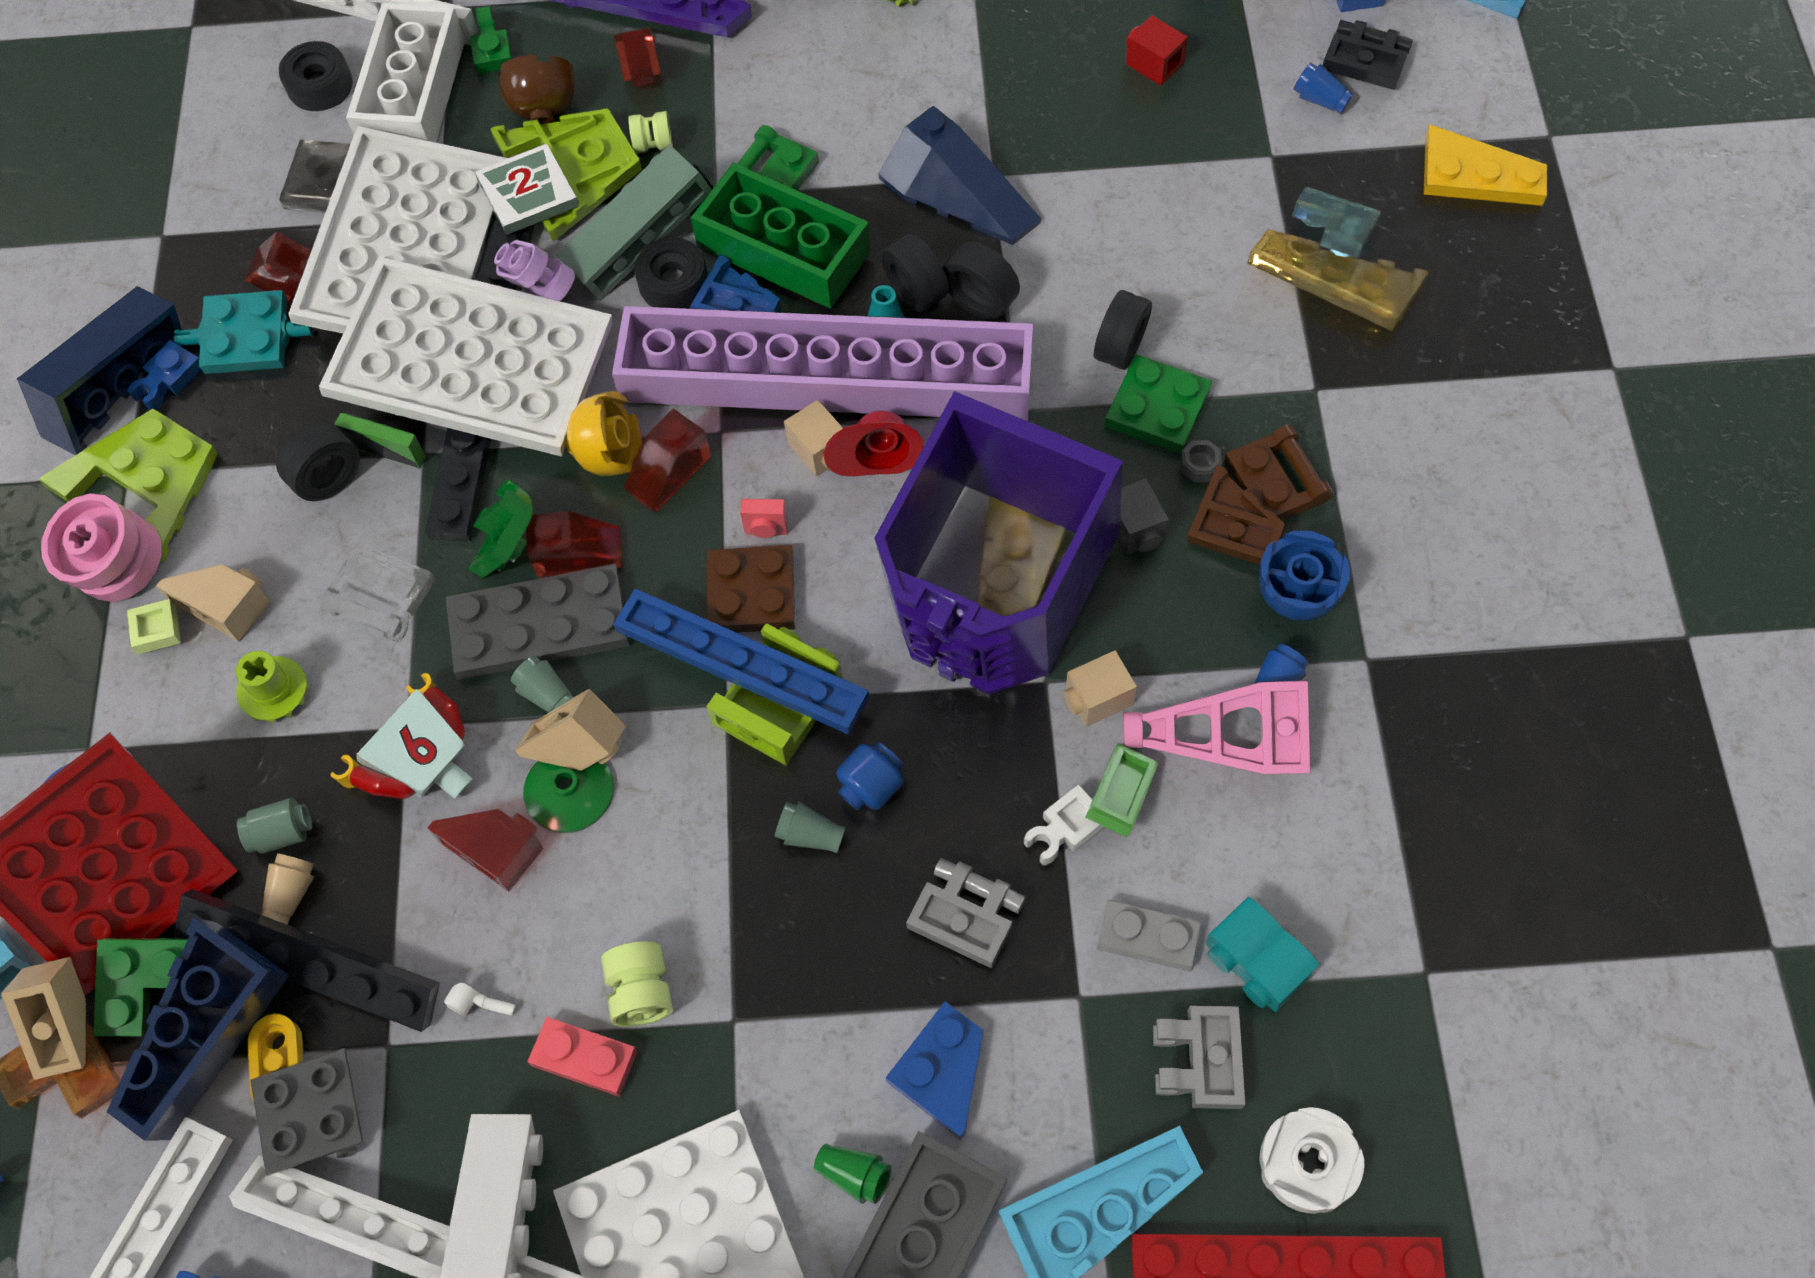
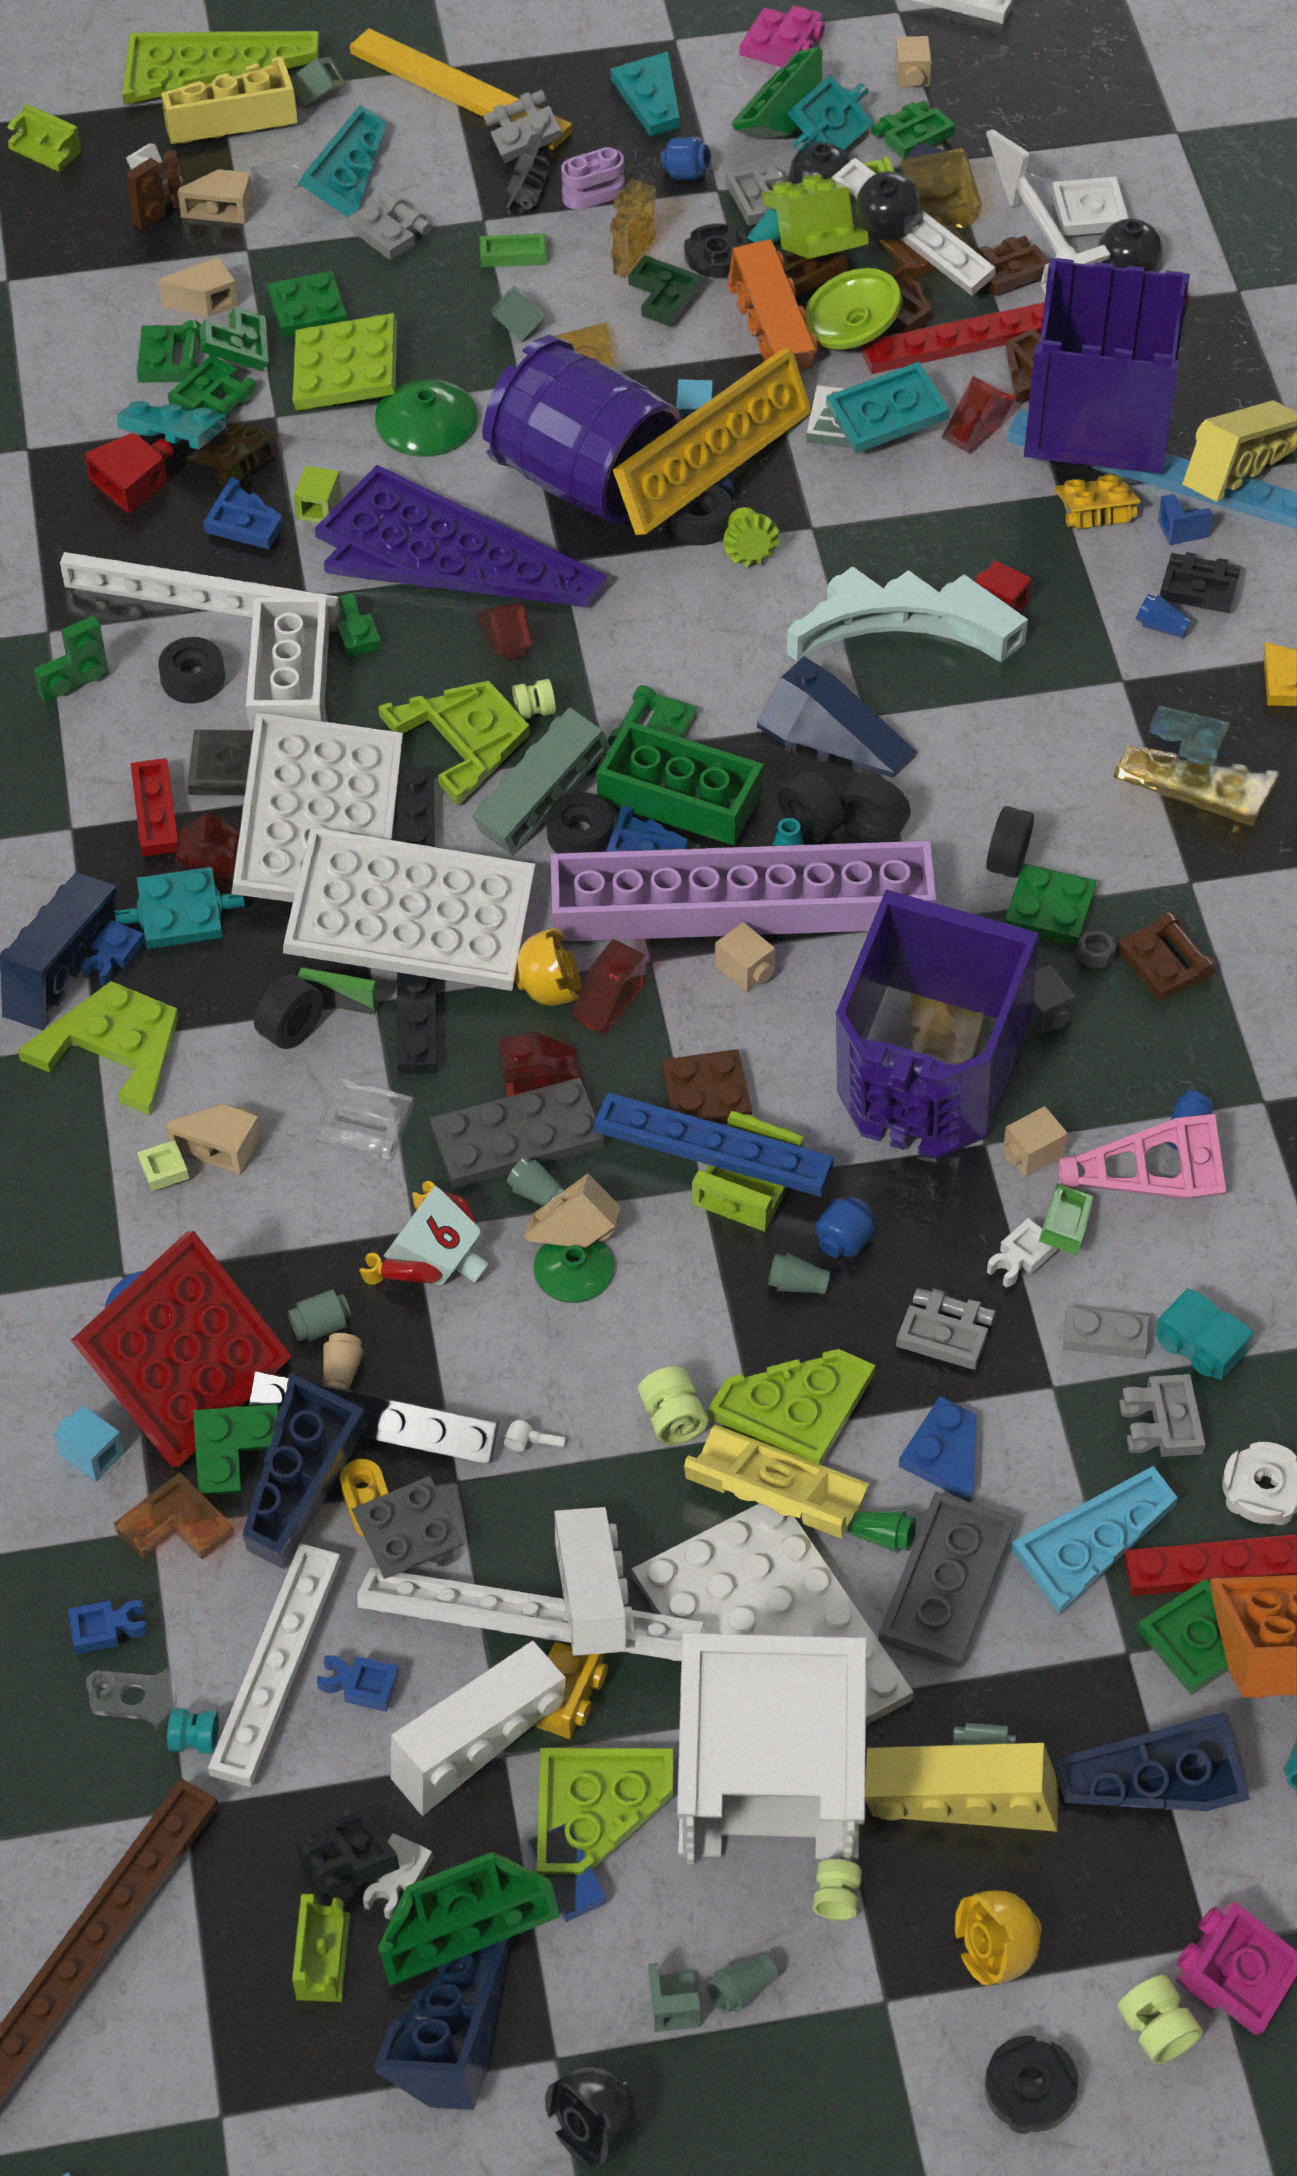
camera: 10 degrees left, 10 degrees down
(49, 1017) = (168, 1475): tan slope -> none
(101, 548) = (104, 1100): bright pink wheel -> none
(202, 63) = (82, 664): none -> green plate
(243, 218) = (154, 807): none -> red plate
(269, 685) = (285, 1204): lime gear -> none
(491, 843) = (516, 1311): clear red slope -> none
(504, 529) = (475, 1054): green slope -> none
(526, 189) = (429, 758): tile -> none
(531, 268) = (455, 829): lavender brick -> none
(537, 88) = (417, 666): reddish brown cylinder -> none
(582, 1056) = (633, 1470): coral plate -> none
(738, 1097) = (777, 1480): none -> light yellow piece
(764, 517) = (709, 1027): coral plate -> none
(779, 993) = (795, 1402): none -> lime plate
(873, 446) = (801, 959): red piece -> none
(1055, 57) = (909, 604): none -> light aqua arch
(1234, 521) = (1134, 997): reddish brown wing -> none
(1303, 575) = (1199, 1033): blue cylinder -> none

